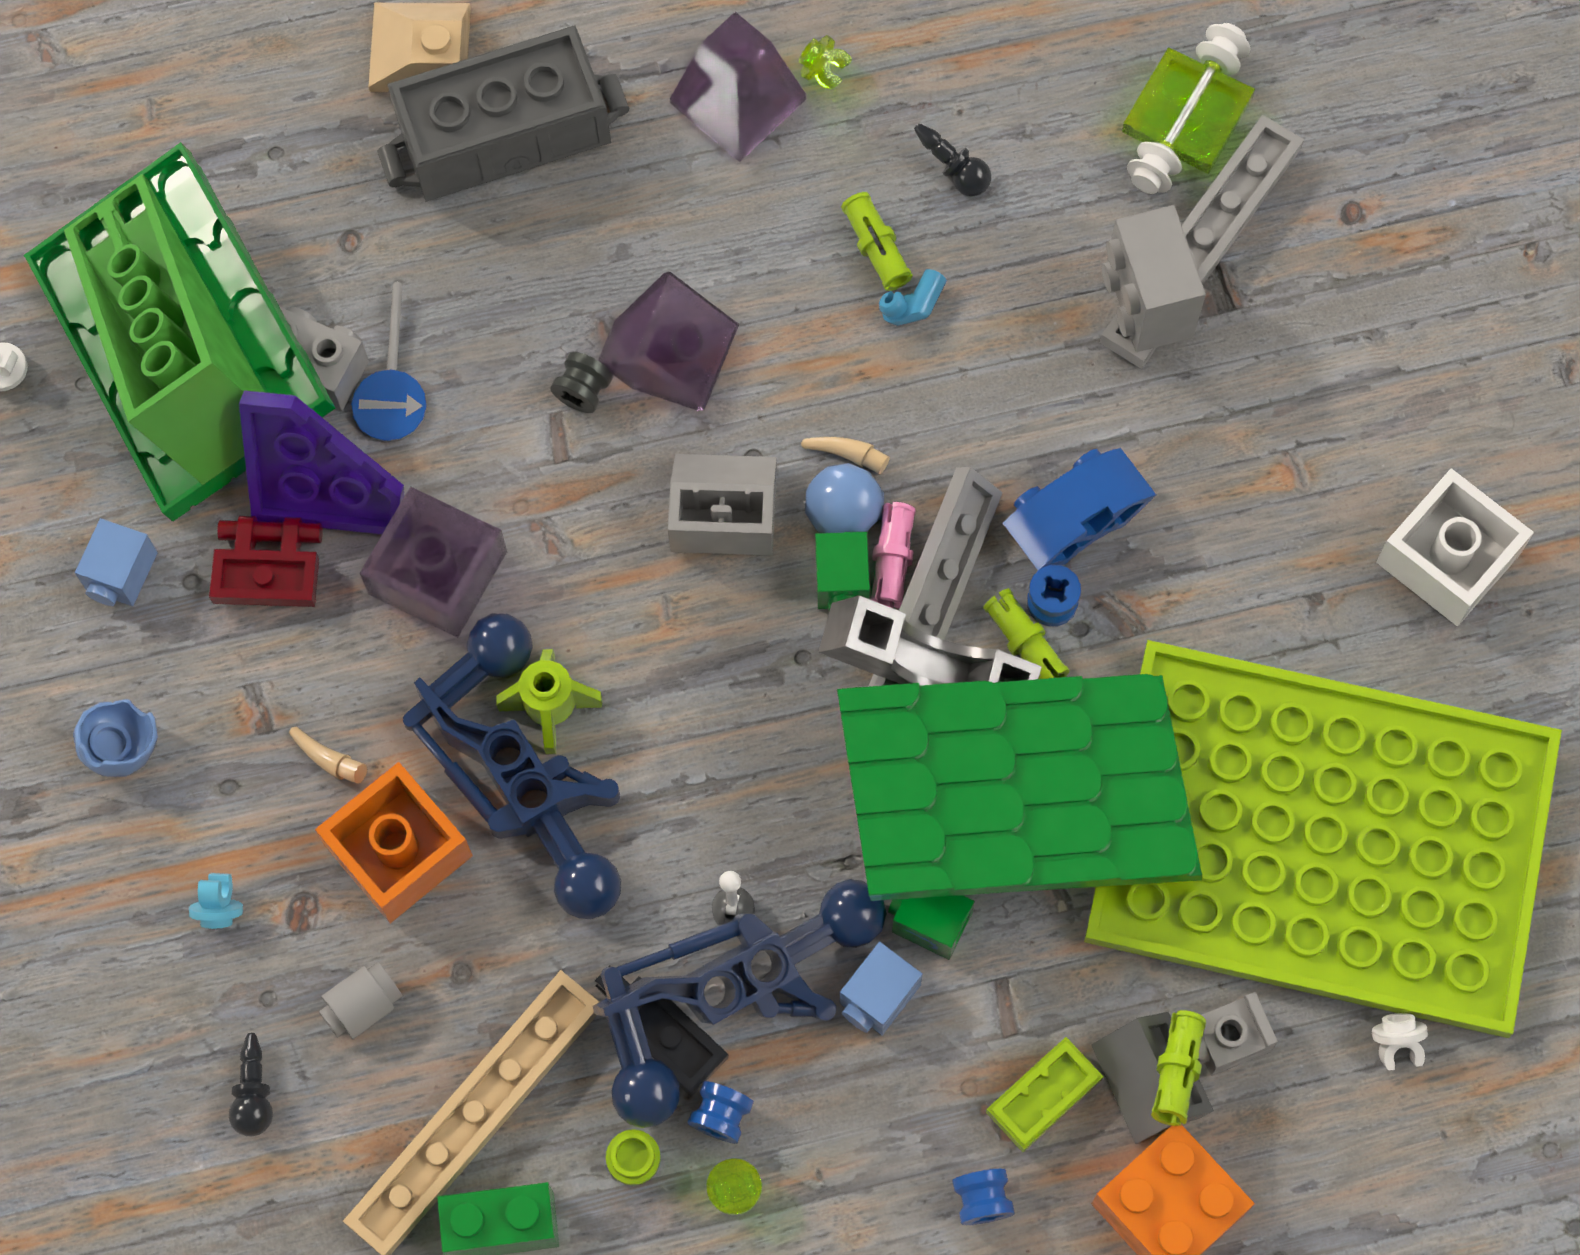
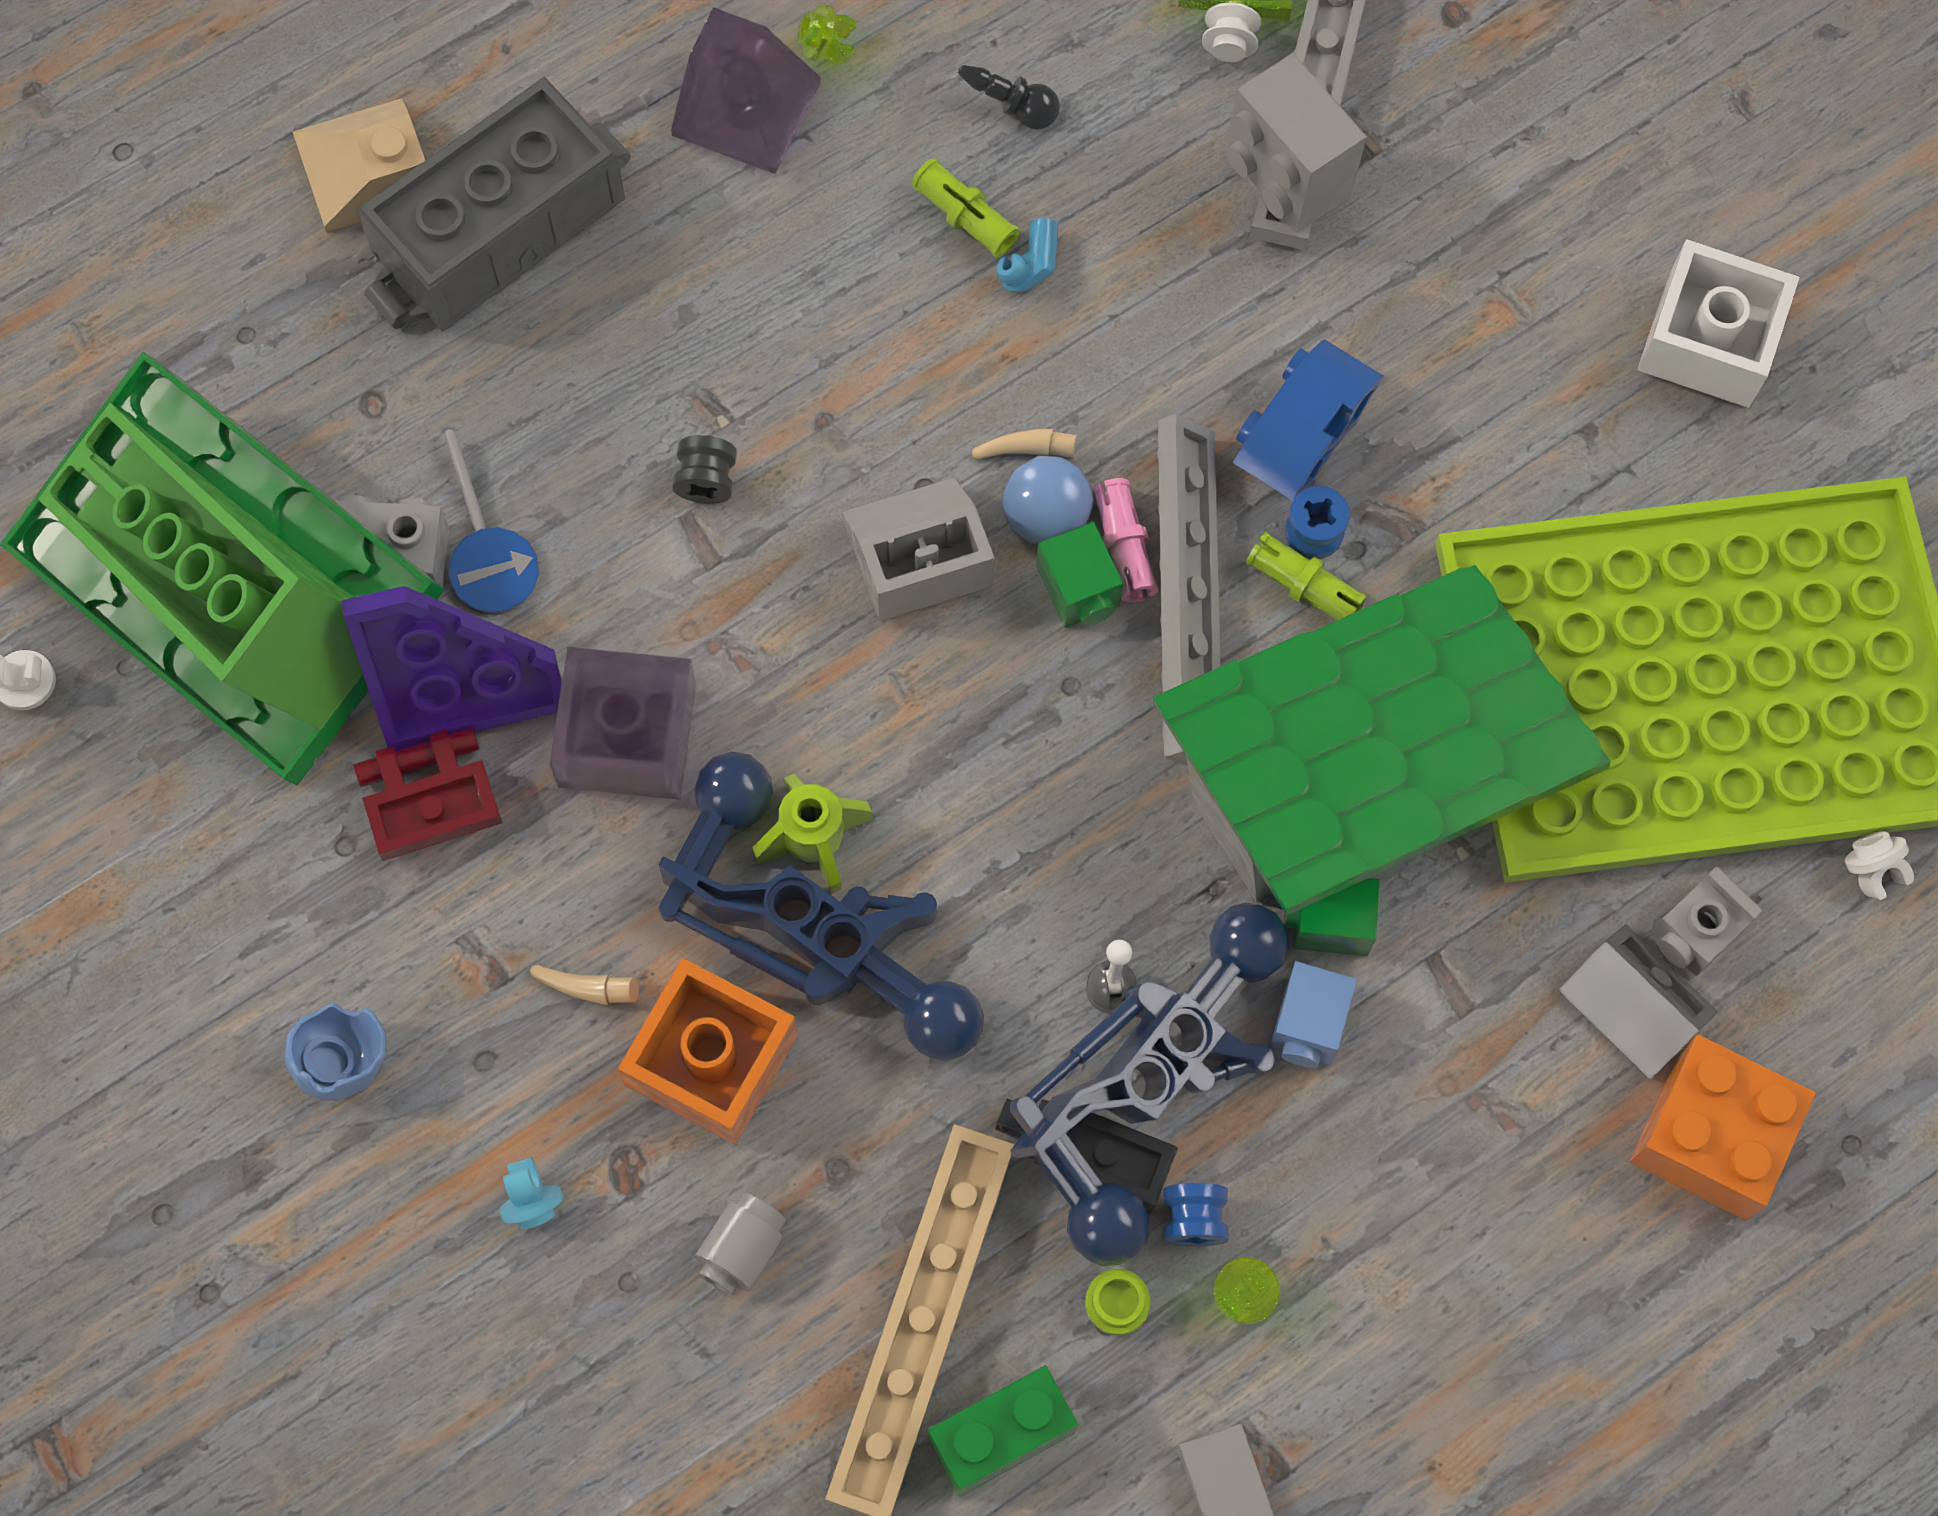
camera: 25 degrees left, 0 degrees up
(115, 563) = (252, 855): medium blue brick -> none
(250, 1111) = (665, 1415): black bar -> none
(670, 343) = (786, 394): clear purple slope -> none
(888, 646) = (1171, 633): flat silver arch -> none
(983, 1196) = (1518, 1197): blue wheel -> none
(1044, 1094) = (1534, 1062): lime plate -> none
(1179, 1068) = (1676, 977): lime pin -> none

